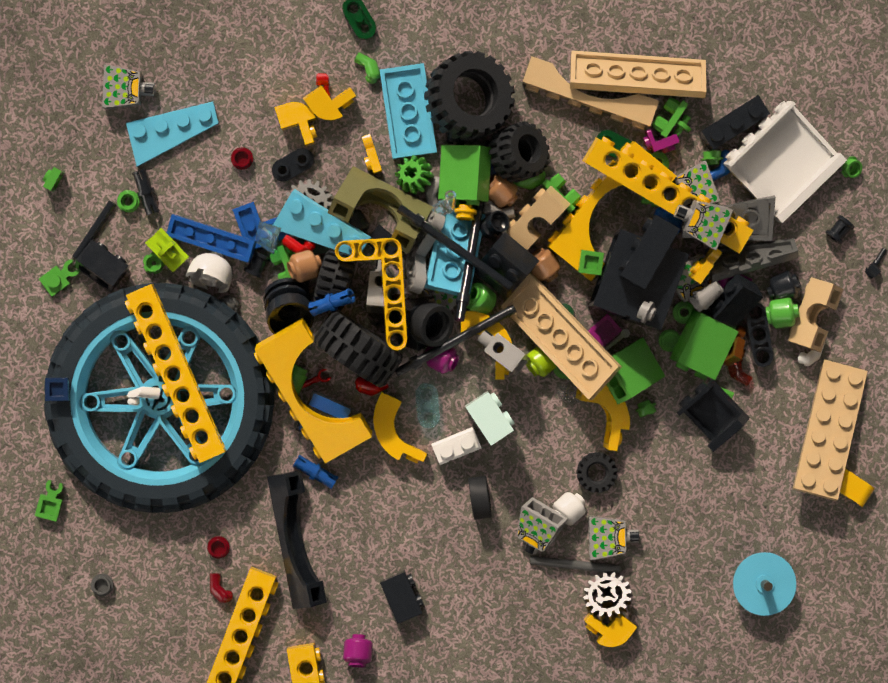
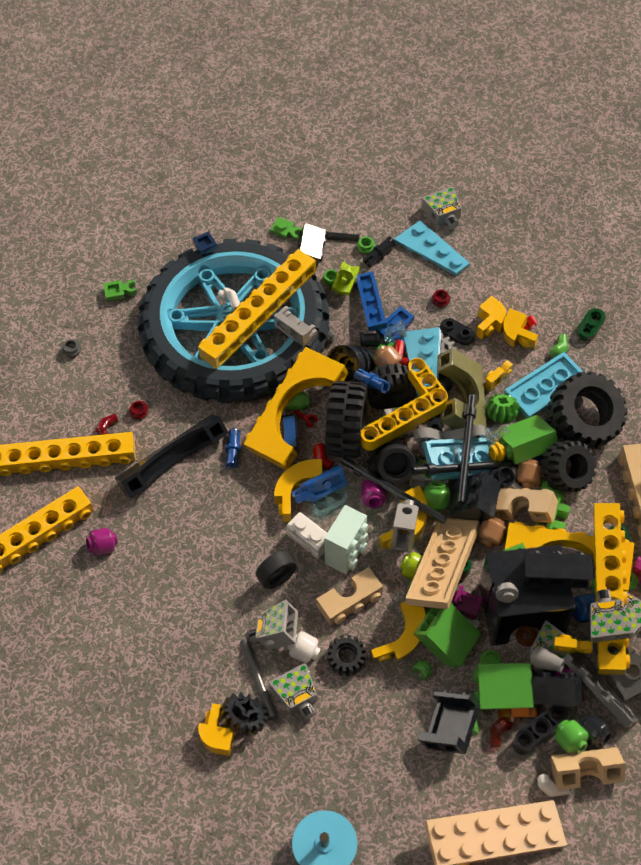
camera: 60 degrees right, 30 degrees down
(52, 178) = (353, 195): bright green plate -> none
(210, 270) = (346, 307): white cylinder -> none
(218, 344) = (294, 327): none -> light grey hinge
(401, 596) = (163, 553): black brick -> none
(411, 409) = (321, 485): none -> blue hinge
(541, 418) = (336, 607): none -> tan arch
(677, 308) = (520, 653): bright green plate -> none

